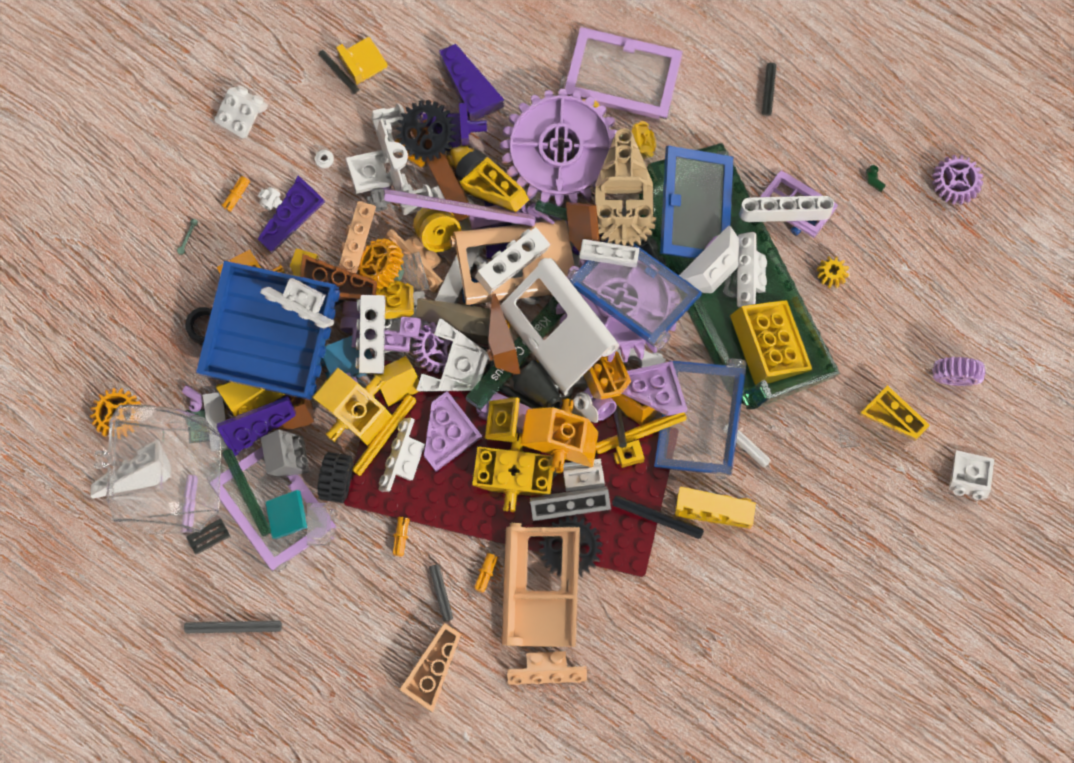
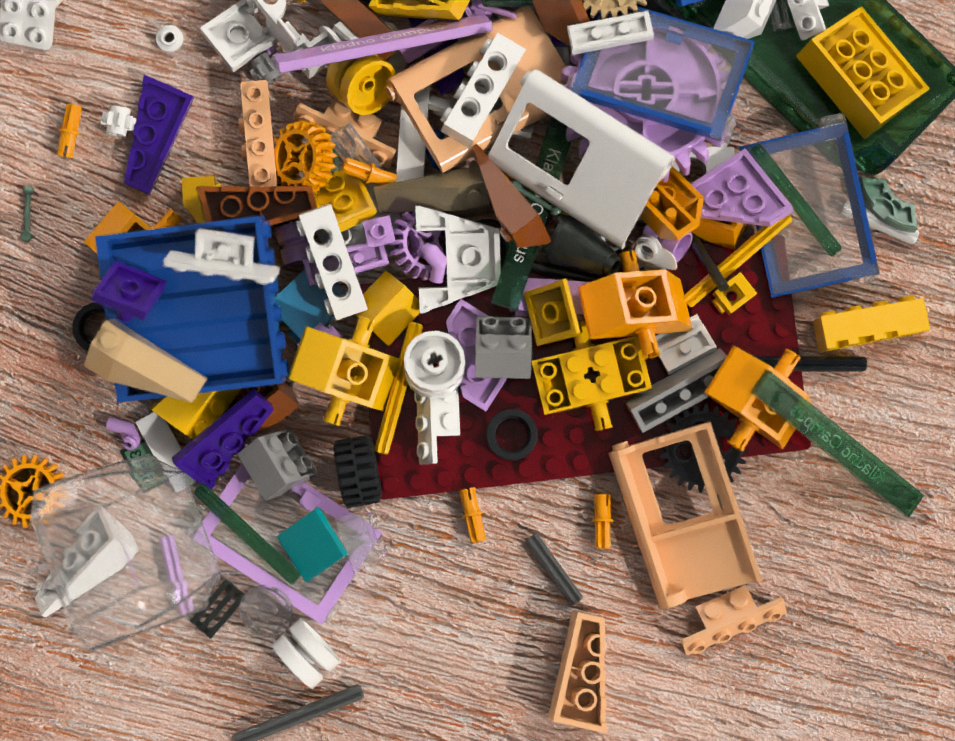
camera: 20 degrees left, 10 degrees up
(216, 348) = (134, 361): none -> tan wedge
(231, 301) = (128, 291): none -> dark purple tile
(238, 548) = (266, 611): none -> clear tile
(251, 585) = (302, 657): none -> white wheel
(412, 425) = (438, 349): none -> white wheel
(418, 288) = (368, 173): none -> light orange axle
(440, 359) = (437, 261): none -> lavender arm
(444, 506) = (511, 414): none -> black tyre
(462, 431) = (503, 347): none -> light grey slope
(530, 355) = (555, 211): none -> sand green hinge
(614, 511) = (732, 390): none -> light orange slope
(660, 575) = (836, 443): none -> clear green tile
(693, 407) = (799, 204): none -> clear green axle
(754, 434) = (887, 206): none -> sand green tile

